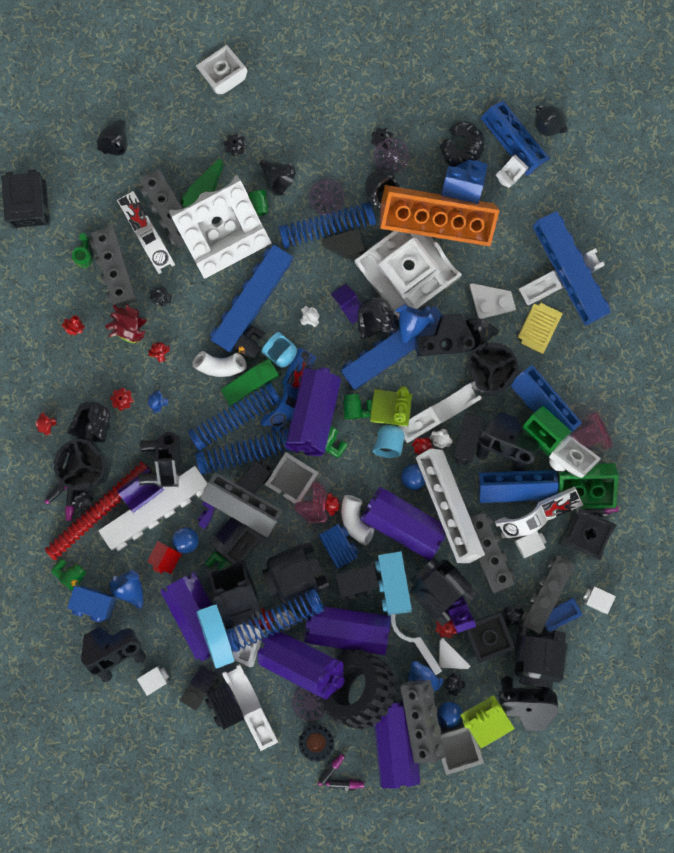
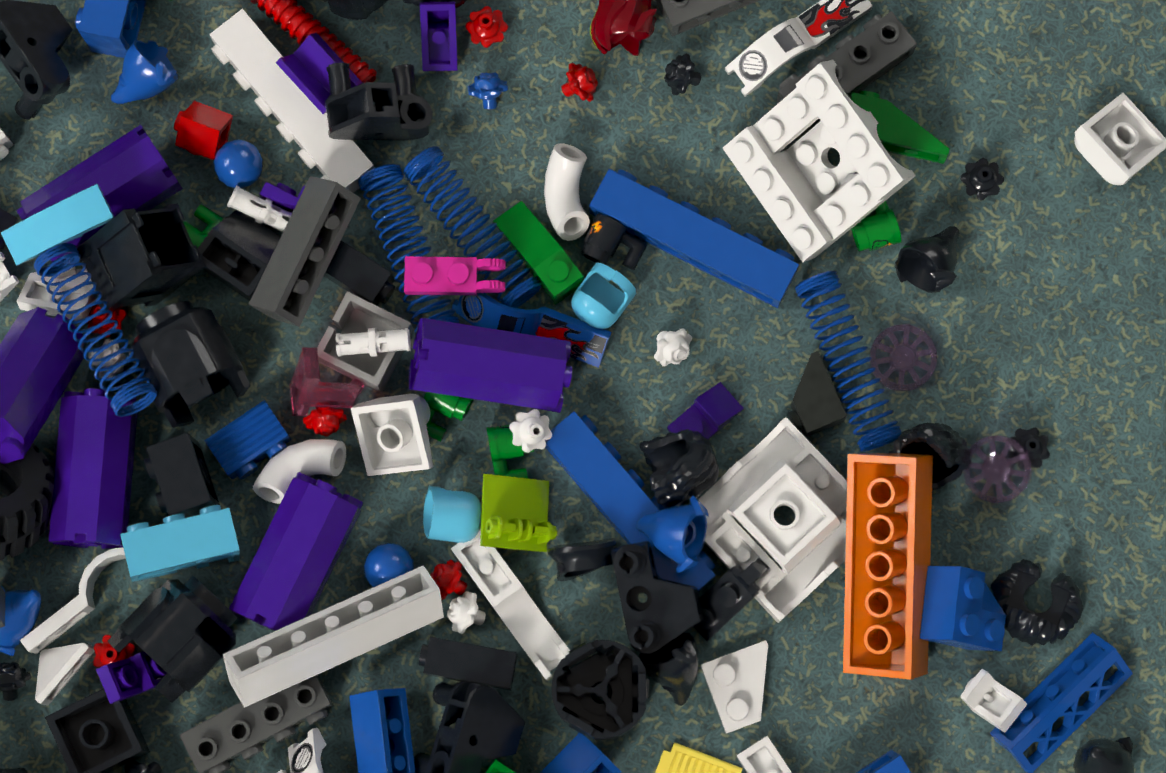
camera: 85 degrees right, 5 degrees down
(125, 425) = (438, 36): none -> dark purple slope
(212, 529) = (259, 209): none -> white pin
(262, 428) = (450, 275): none -> dark pink hinge
(295, 471) = (373, 342): none -> white pin
(343, 467) = (393, 434): none -> white slope
(350, 393) = (530, 430): none -> white plant
(418, 373) = (581, 558): none -> black hat
(446, 298) = (729, 597): none -> black hinge

